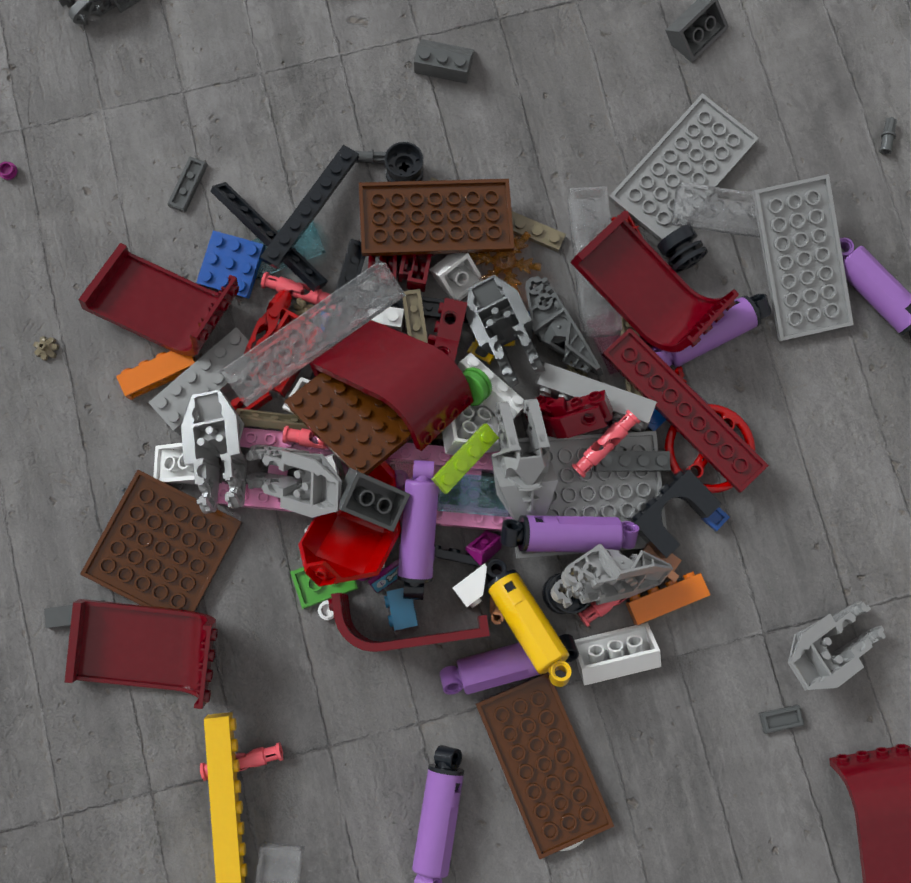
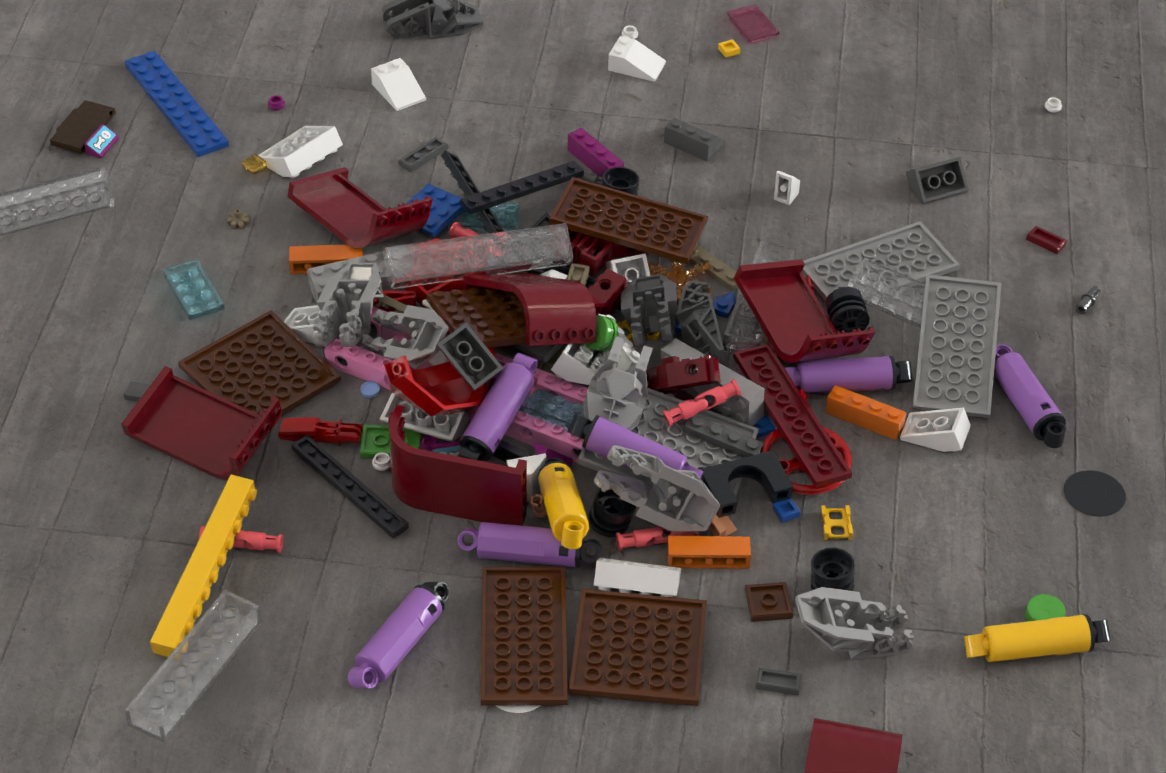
camera: 20 degrees right, 35 degrees down
(26, 267) = (254, 163): none -> clear yellow plate
(46, 463) = (193, 289): none -> clear light blue plate
(62, 230) = (301, 150): none -> white slope
(119, 97) = (397, 84): none -> white slope
(245, 600) = (319, 430): none -> red arm
(275, 520) = (370, 389): none -> light blue piece
(311, 653) = (350, 486): none -> black plate
(359, 124) = (592, 152): none -> magenta brick
(465, 458) = (565, 367): lime plate -> none
(559, 274) = (724, 304): none -> blue plate
(561, 98) = (786, 188): none -> white slope
(649, 735) = (638, 647): none -> reddish brown plate
(738, 630) = (768, 601): none -> reddish brown tile
(743, 368) = (865, 412): none -> orange brick
(768, 509) = (843, 523): none -> yellow piece
(801, 589) = (832, 569): none -> black wheel
(811, 362) = (937, 429): none -> white slope
(822, 68) = (1046, 240): none -> dark red tile

